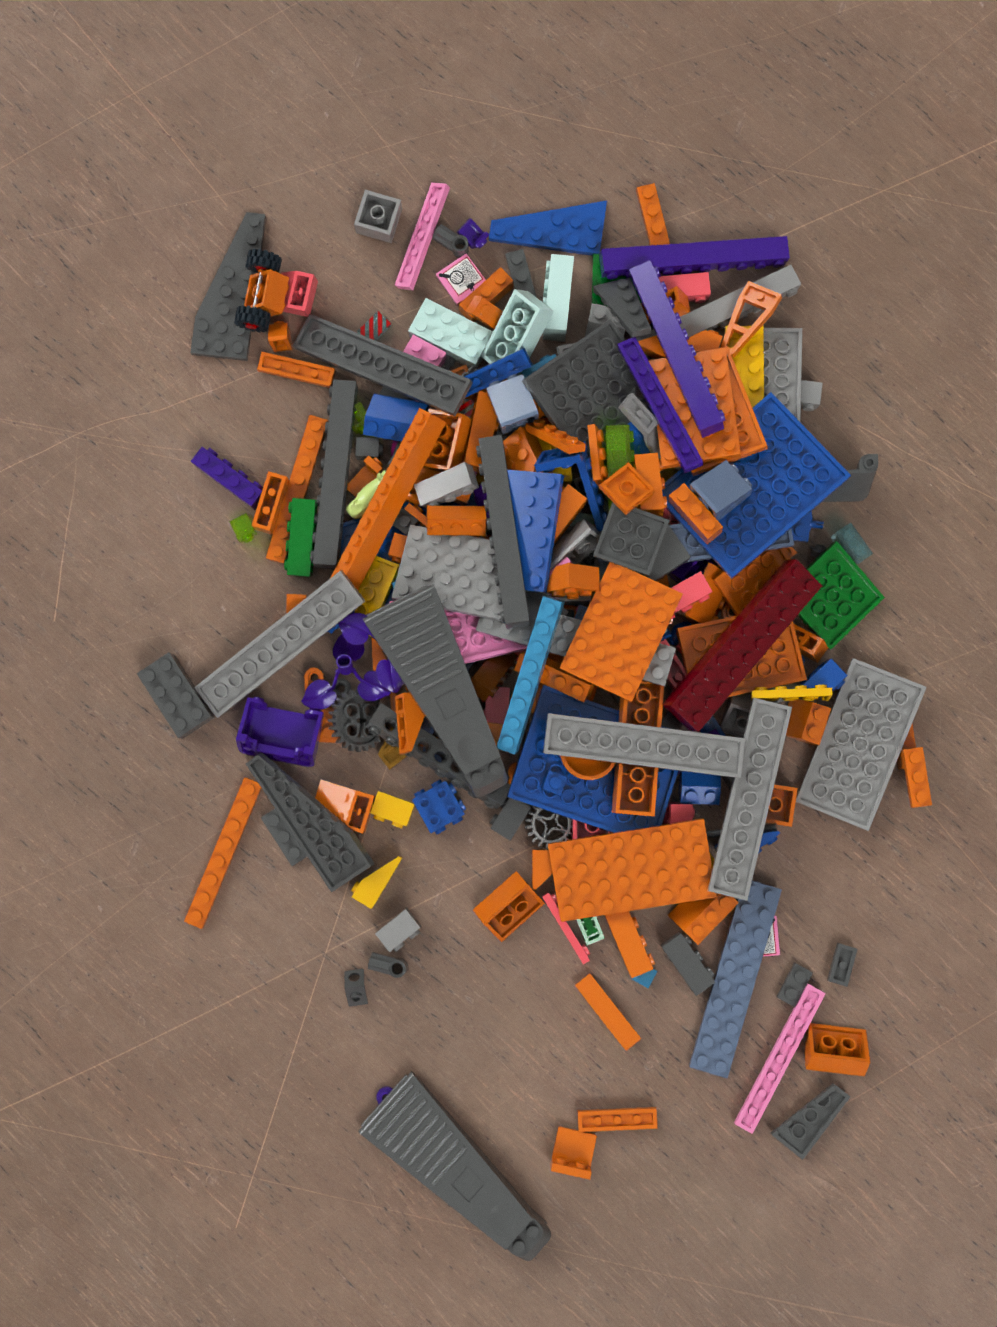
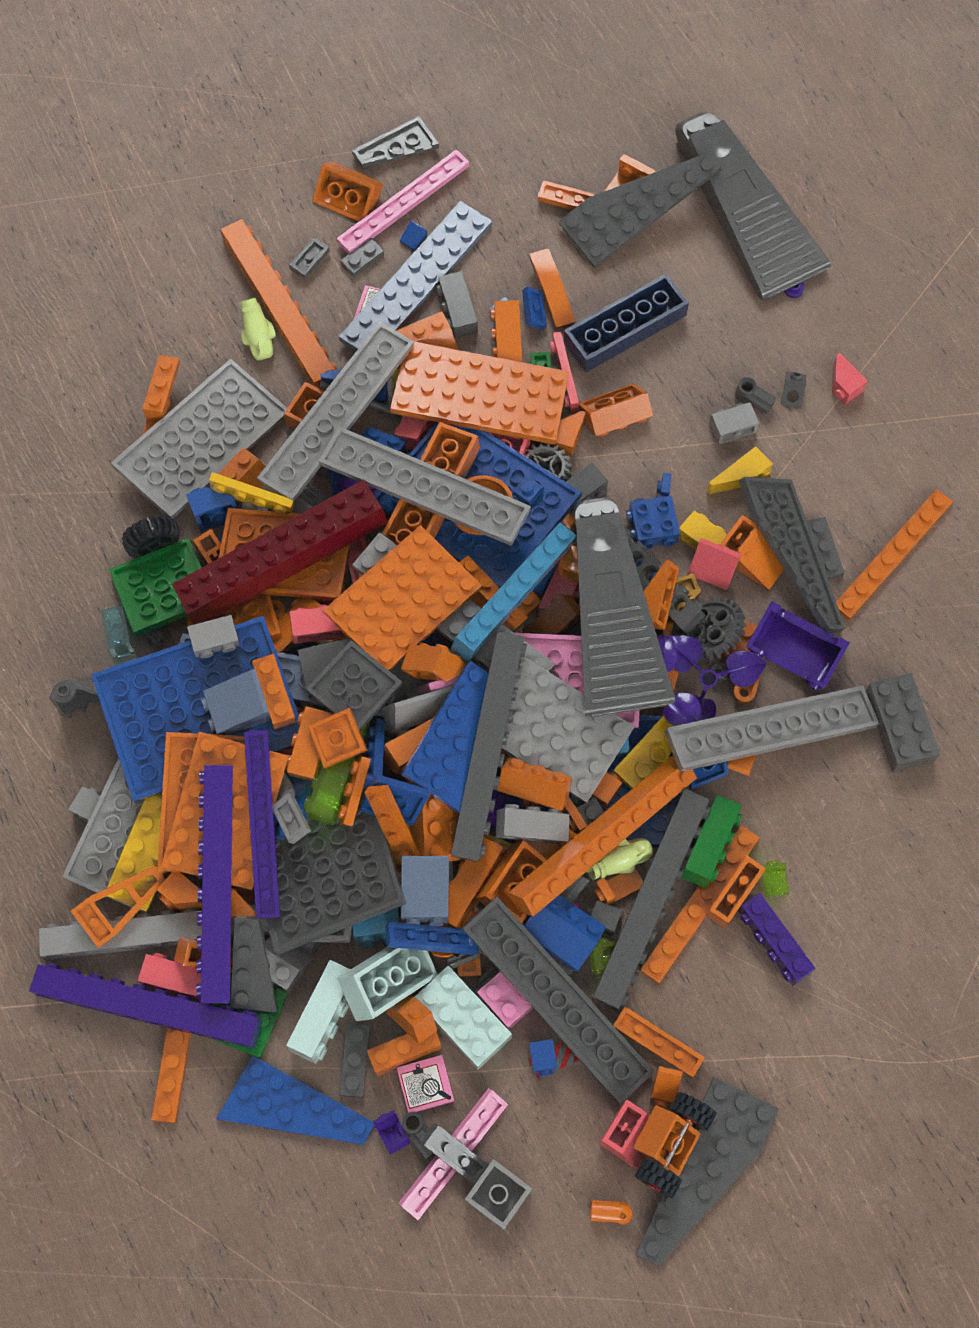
camera: 160 degrees left, 15 degrees down
(293, 235) = (610, 1211): none -> orange piece
(310, 1010) = (846, 380): none -> coral slope
(373, 781) = (714, 564): none -> coral tile
(379, 323) = (543, 1058): none -> blue brick
(420, 230) = (454, 1153): none -> plate
(440, 844) = (663, 486): none -> blue plate
(527, 997) = (625, 322): none -> dark blue brick
(570, 1114) = (619, 214): none -> dark grey wing
(616, 985) = (534, 308): none -> blue plate
(756, 1023) = (413, 236): none -> blue slope
(764, 539) = (213, 637): none -> light grey brick
(851, 905) = (277, 301): none -> orange brick
(857, 869) = (257, 330): none -> yellowish green animal
(862, 634) = (150, 535): none -> black gear

